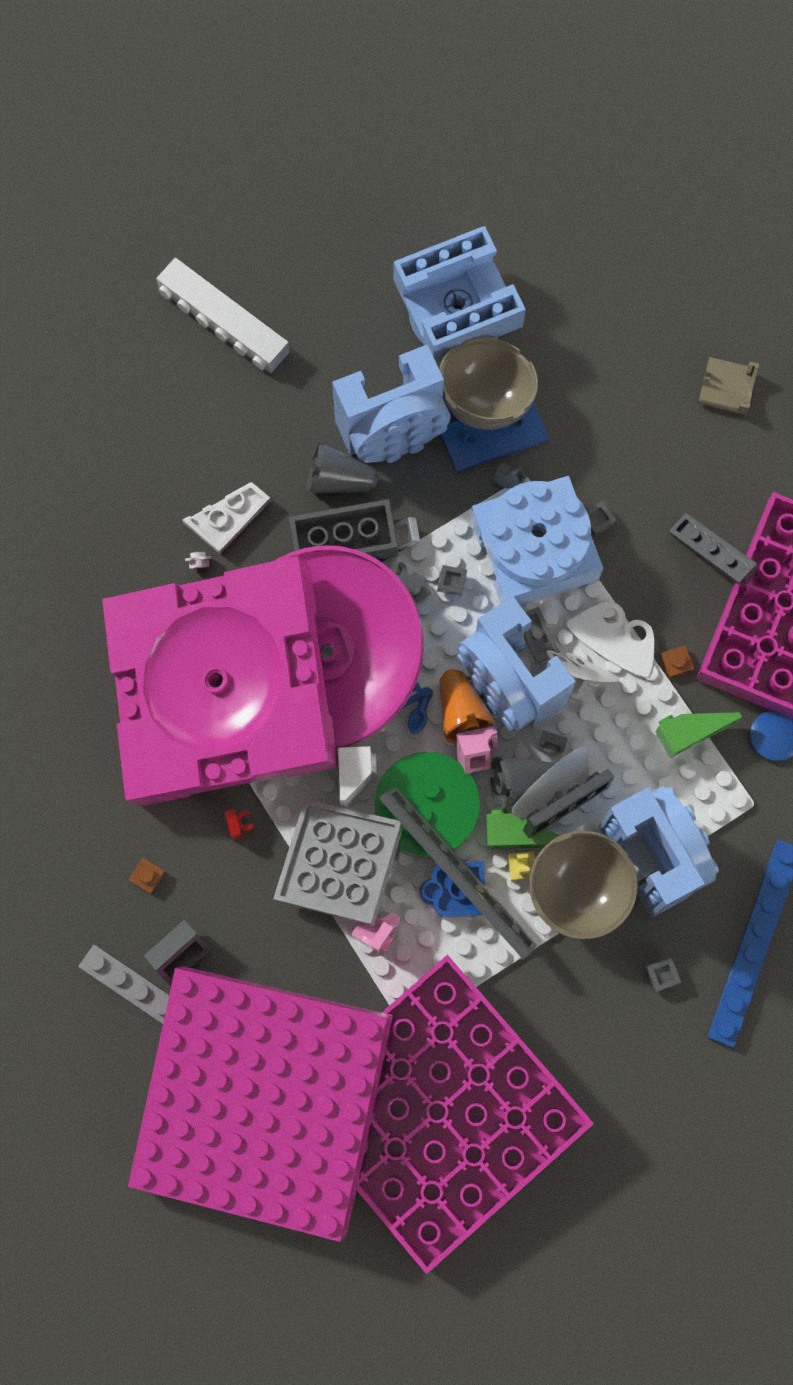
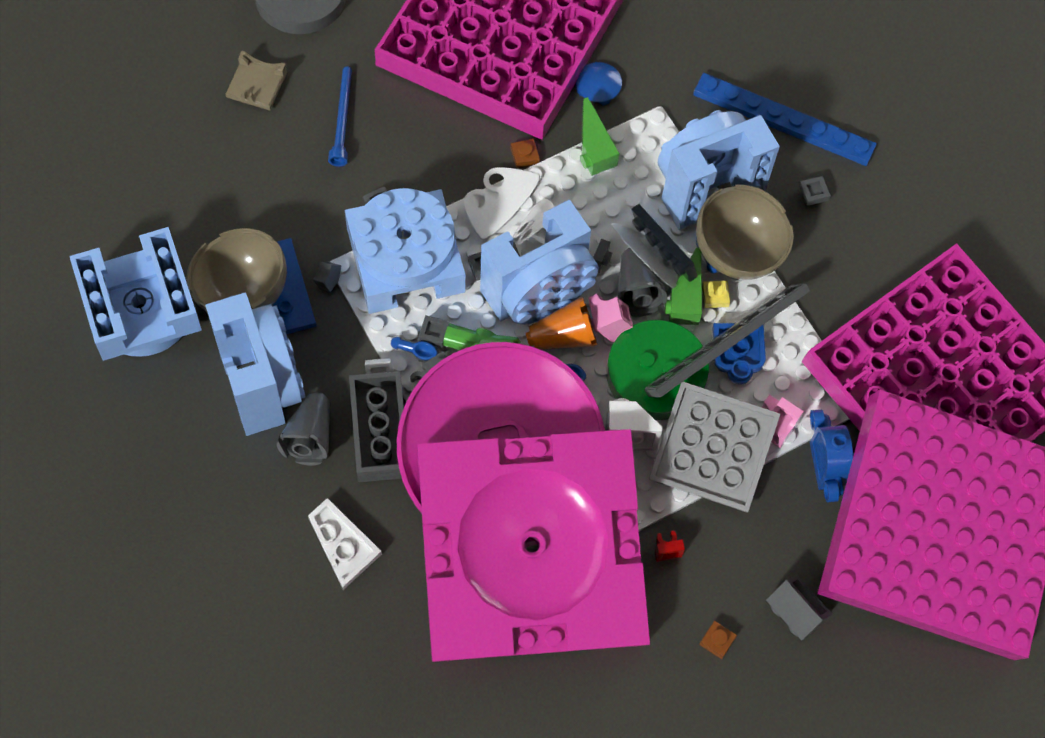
camera: 90 degrees left, 10 degrees down
(126, 982) = (827, 660): light grey plate -> none
(198, 560) = (388, 573): white plate -> none
(222, 315) = (112, 537): white brick -> none
(341, 983) = (831, 454): none -> blue piece
(431, 571) = (421, 349): none -> blue piece
(440, 626) = (460, 337): none -> bright green piece
(652, 473) = (338, 155): none -> blue piece
(714, 549) = (424, 104): plate -> none

